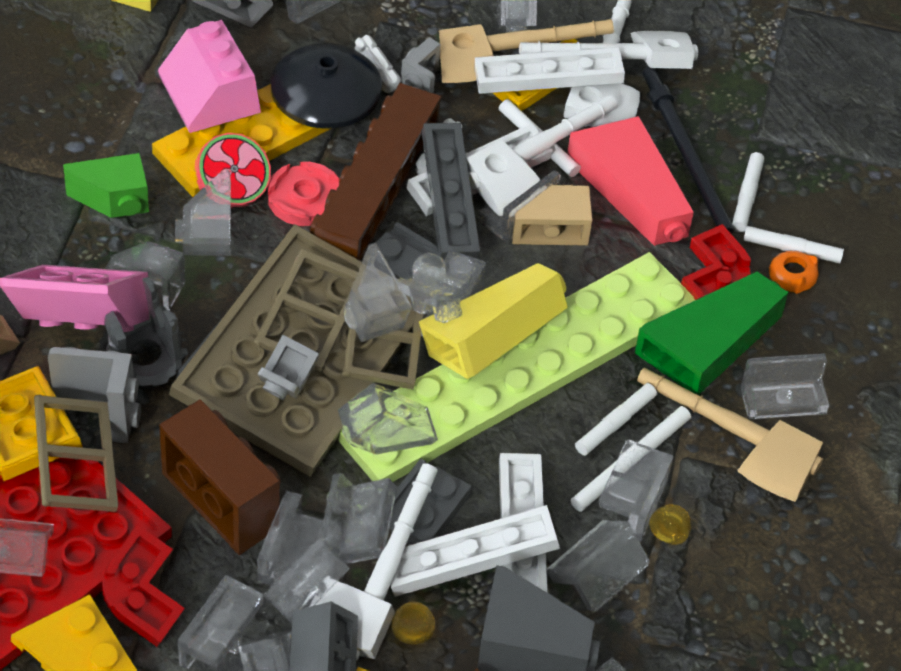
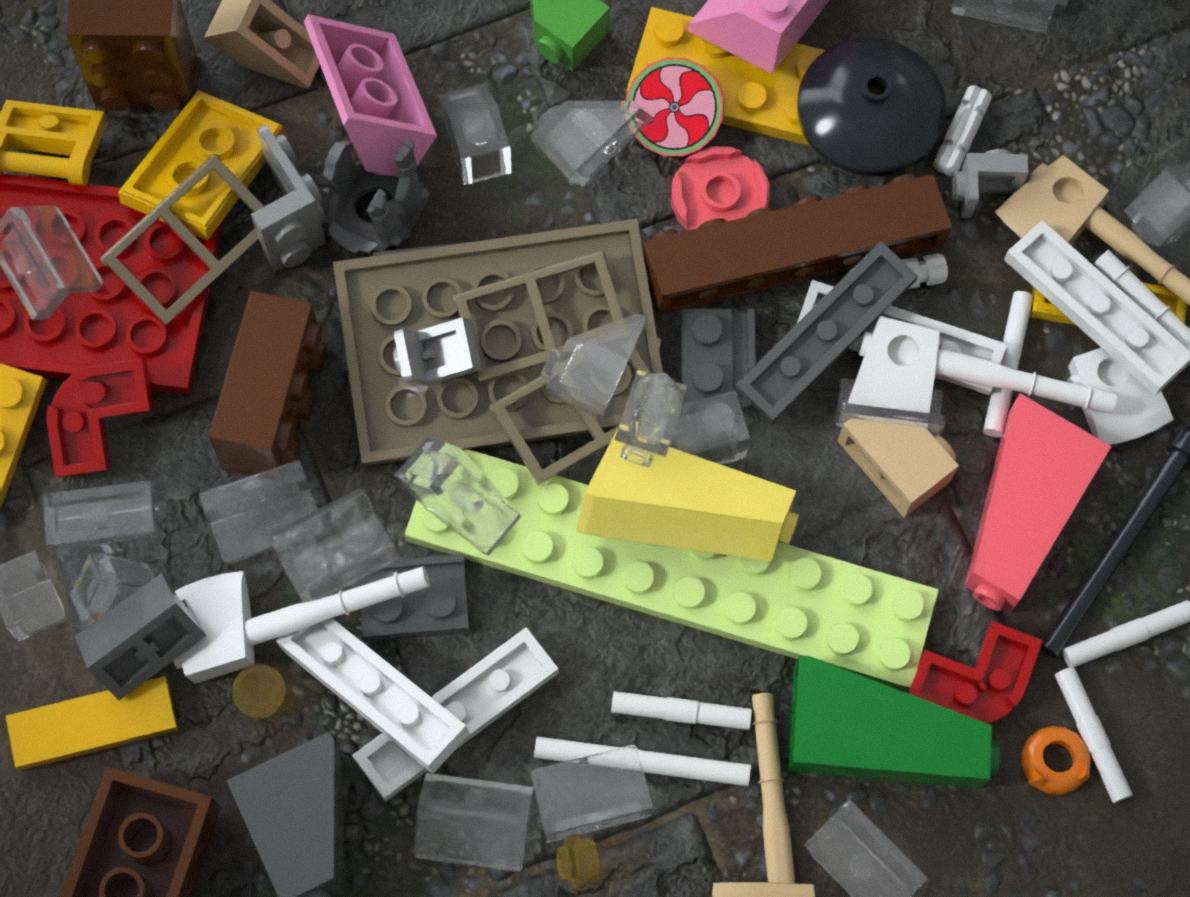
camera: 55 degrees right, 20 degrees up
(306, 580) = (211, 558): clear hips -> none

